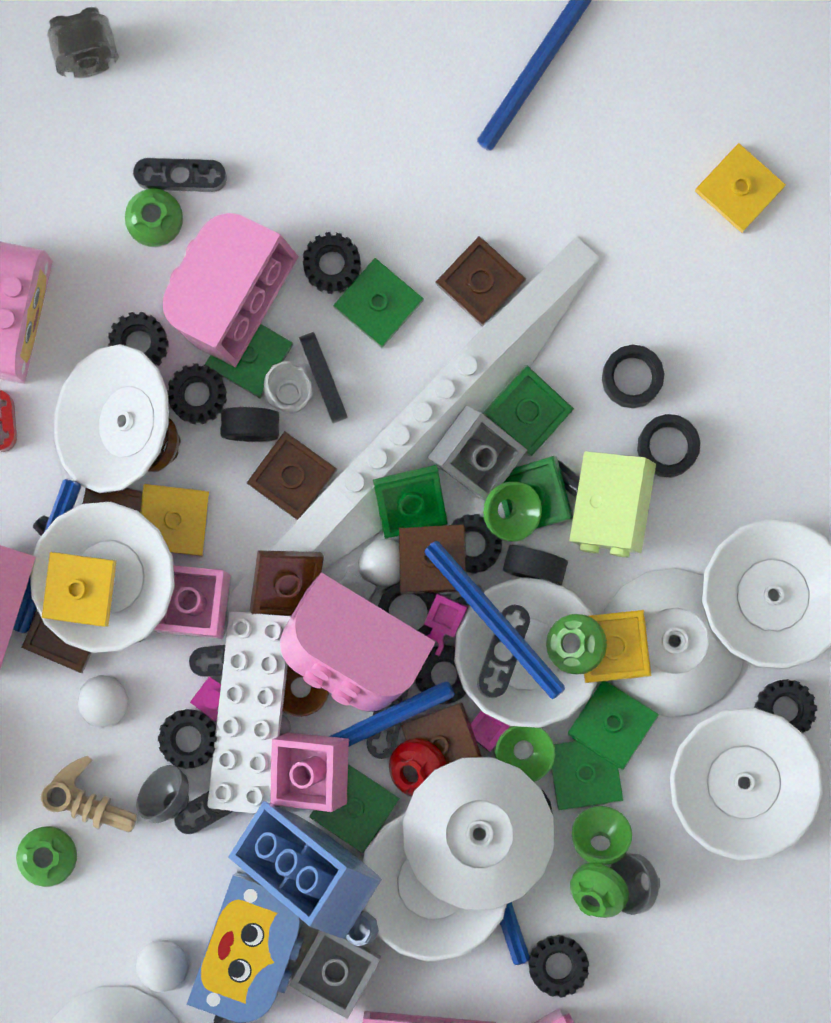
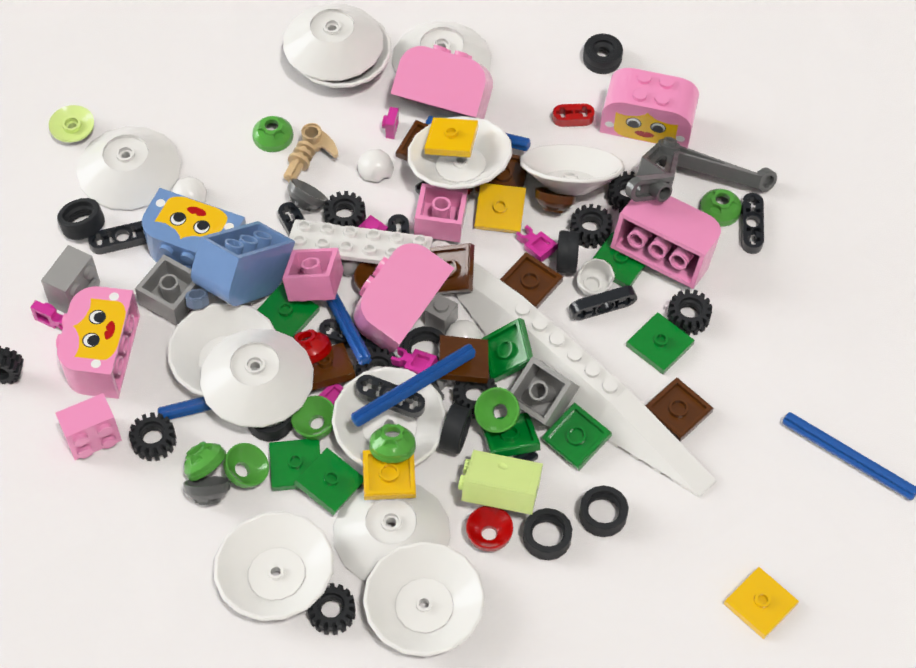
camera: 90 degrees right, 25 degrees down
(26, 683) = (390, 122): none -> dark pink plate
(78, 274) = (656, 183): none -> dark grey piece
(82, 43) = (844, 161): clear smoke brick -> none
(232, 465) = (537, 245): none -> dark pink plate
(685, 511) = (492, 518): none -> red piece

